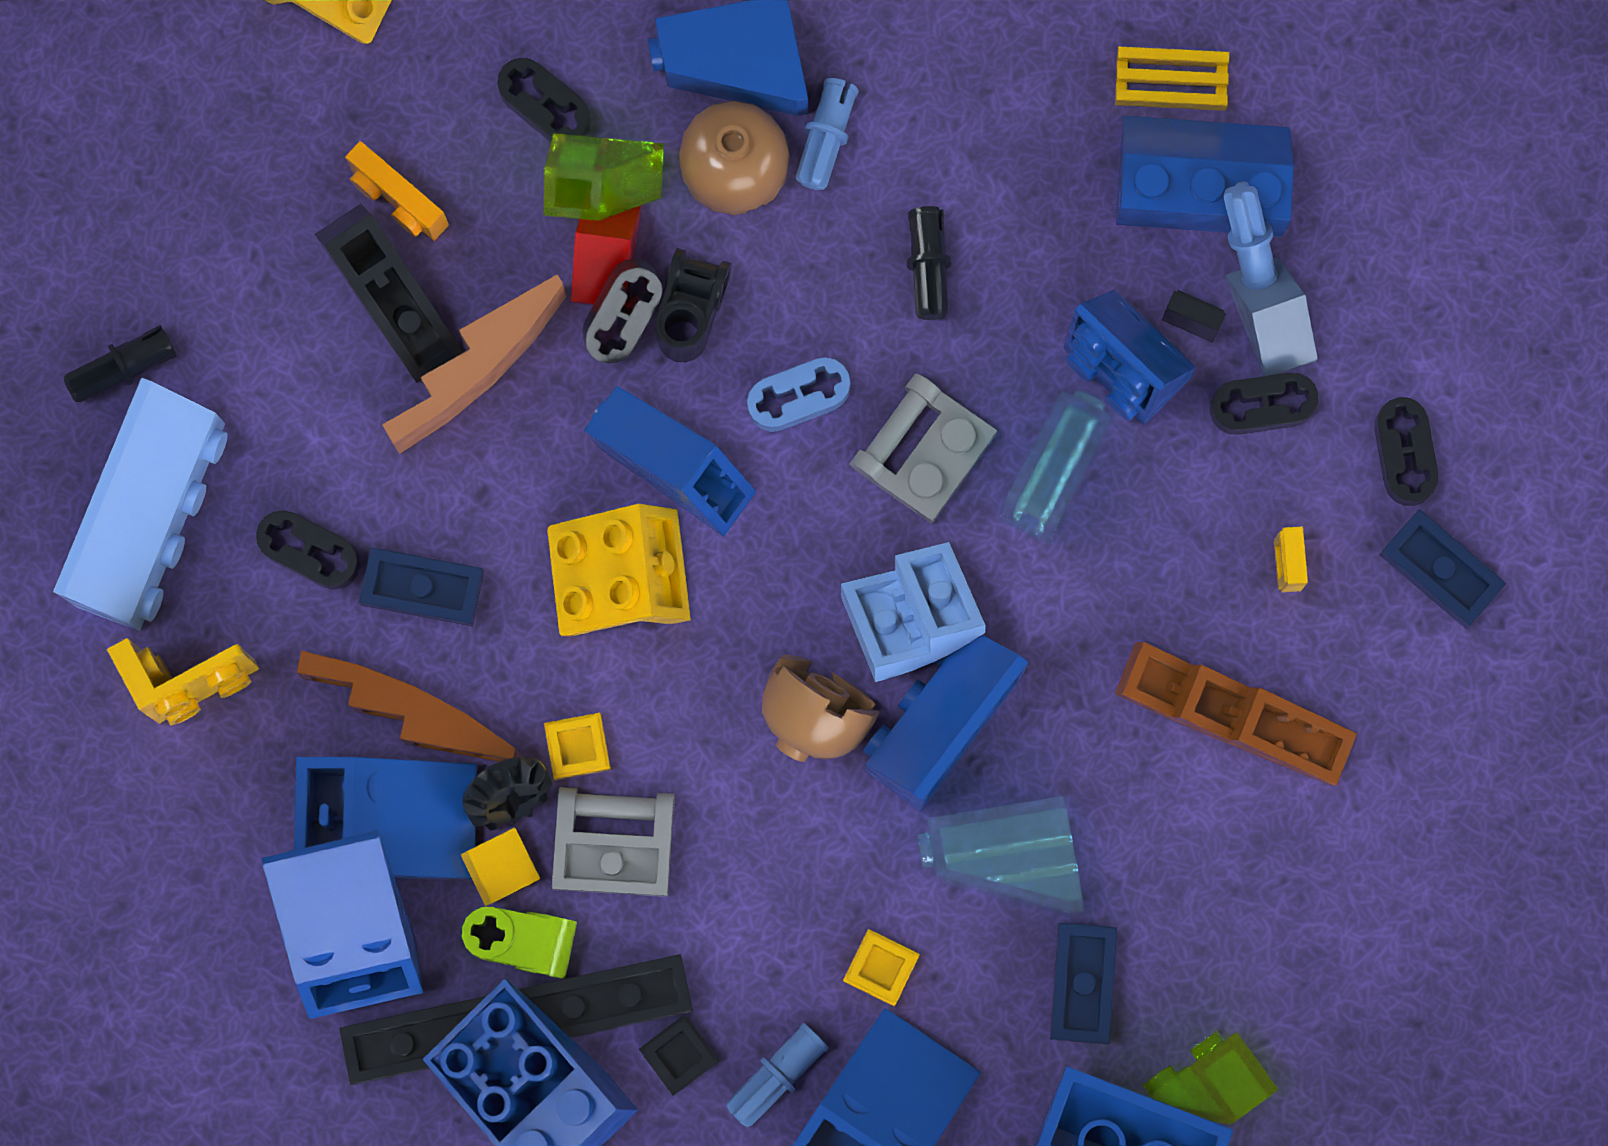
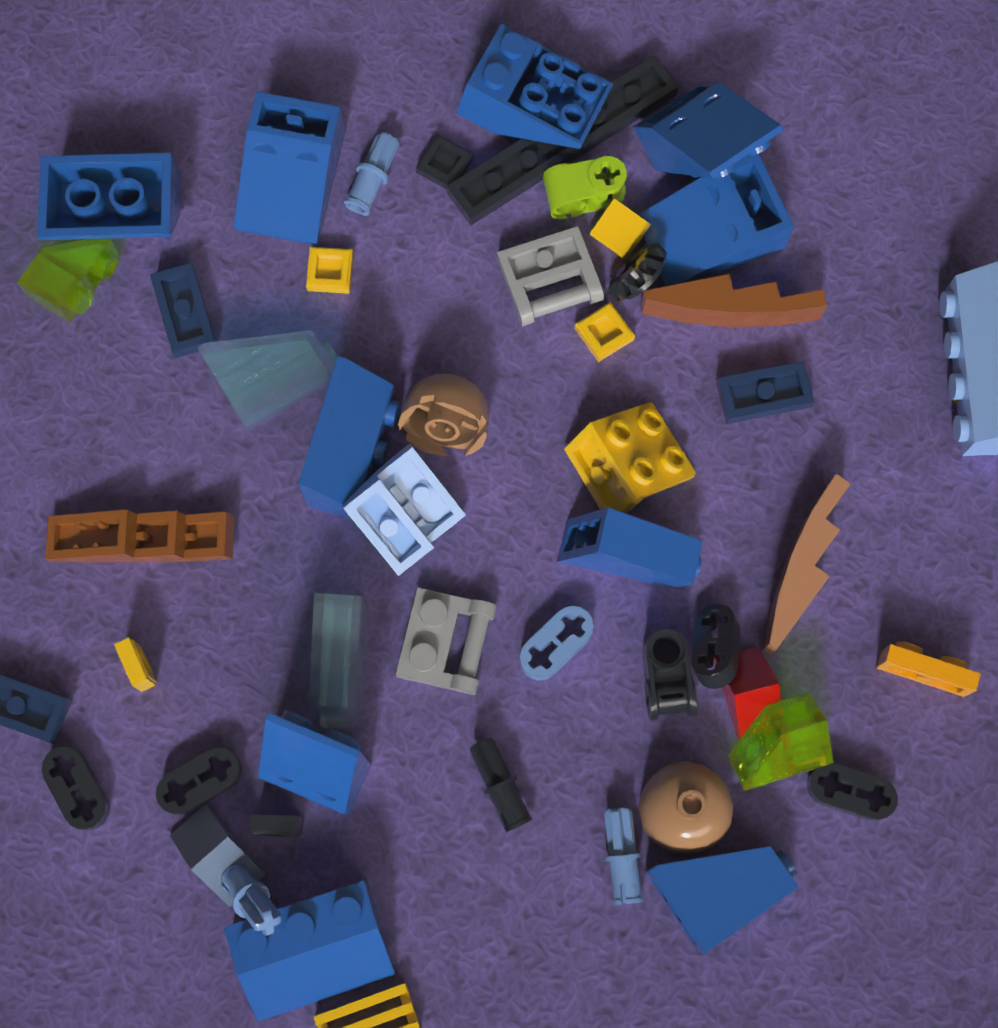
camera: 155 degrees right, 5 degrees down
(178, 697) = (917, 238): yellow bracket -> none
(314, 538) = (858, 377): black beam -> none
(388, 291) = (900, 593): black slope -> none

